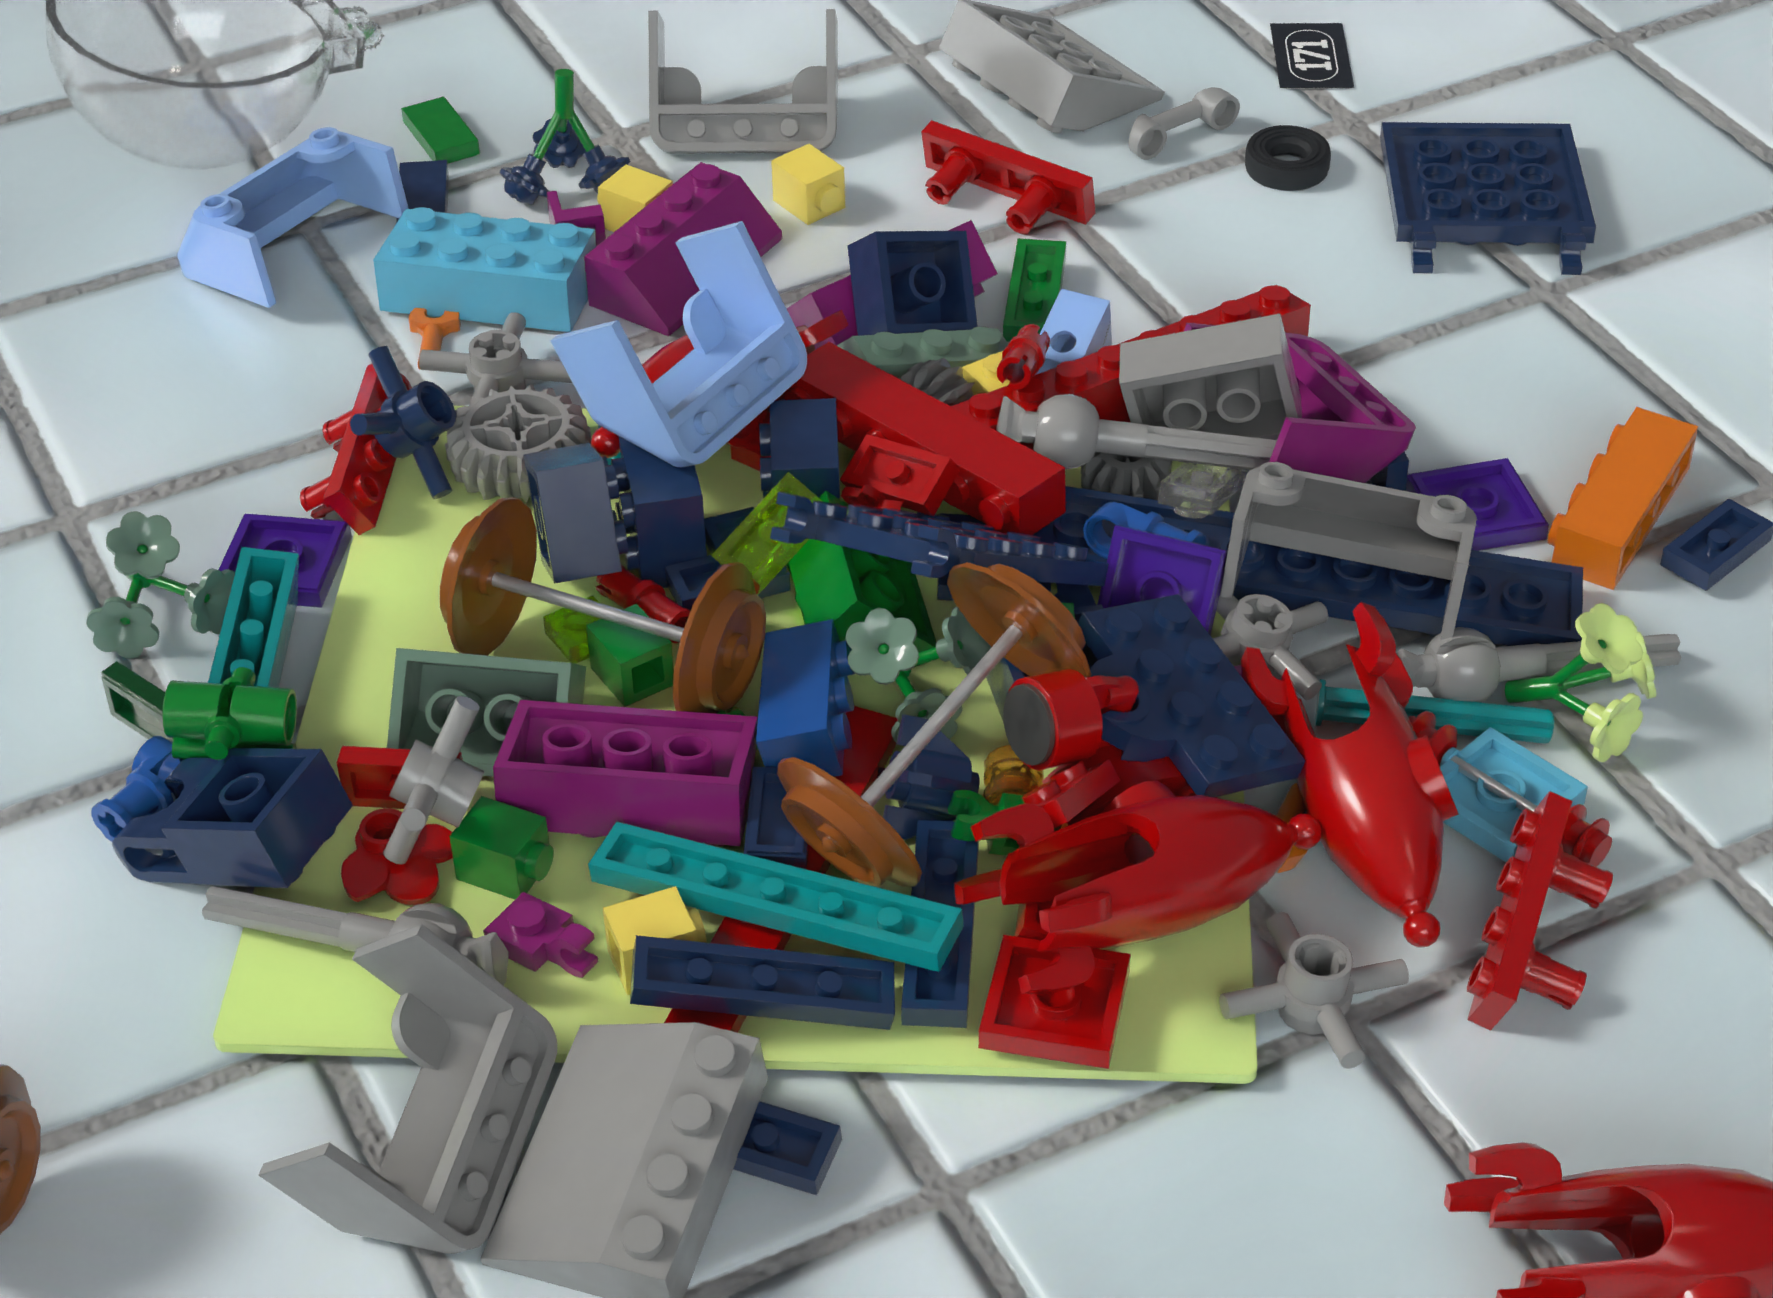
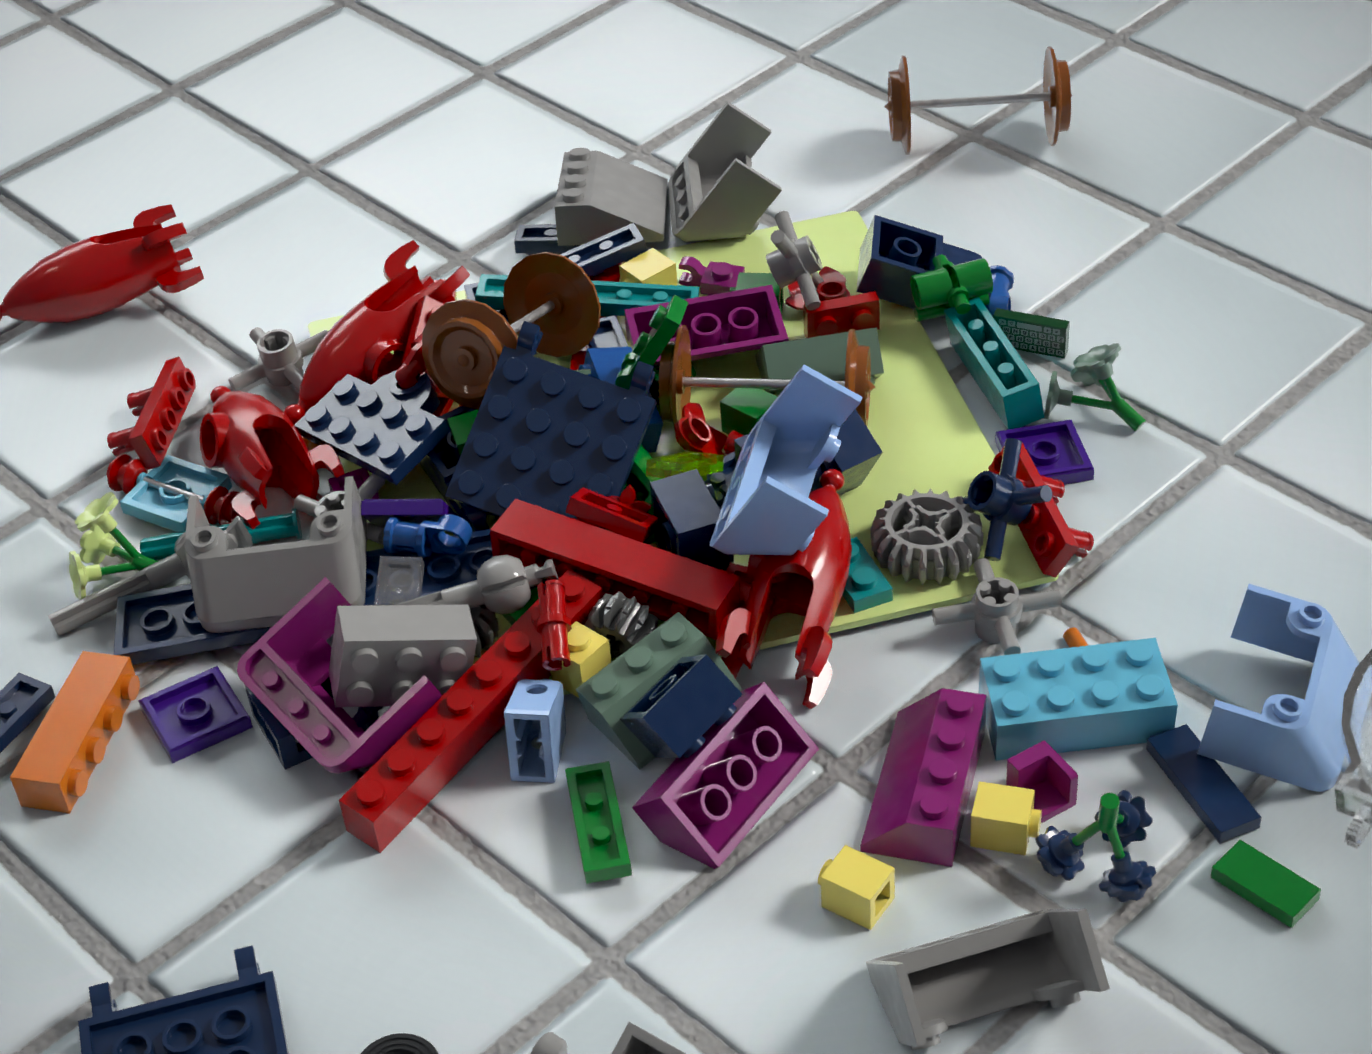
camera: 165 degrees right, 0 degrees up
(354, 929) = (757, 243): light grey piece -> none
(744, 619) = (650, 346): none -> green plate
(1026, 178) = (673, 954): red plate -> none

